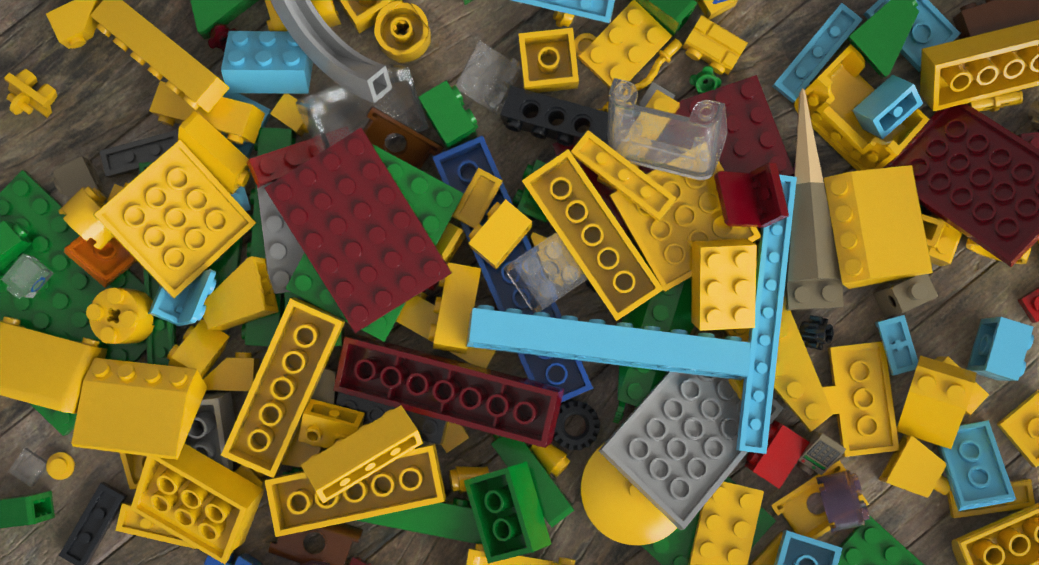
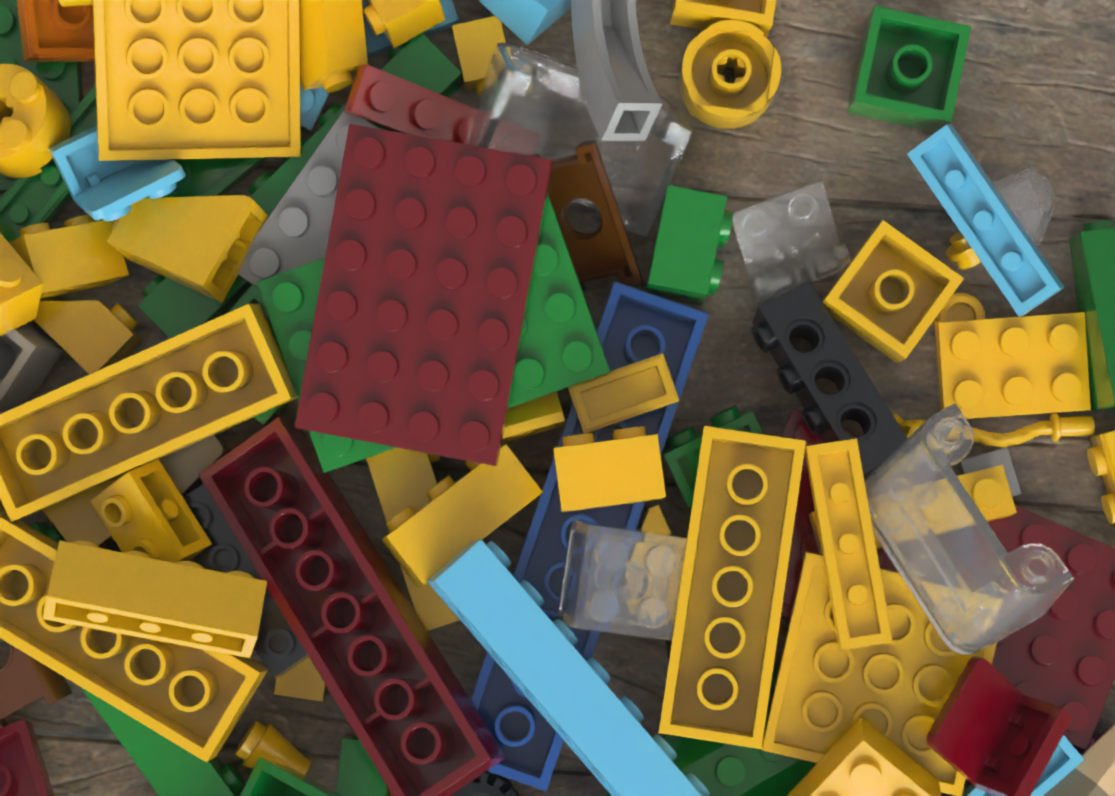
camera: 40 degrees right, 0 degrees up
(706, 73) = (1091, 503): green plate -> none

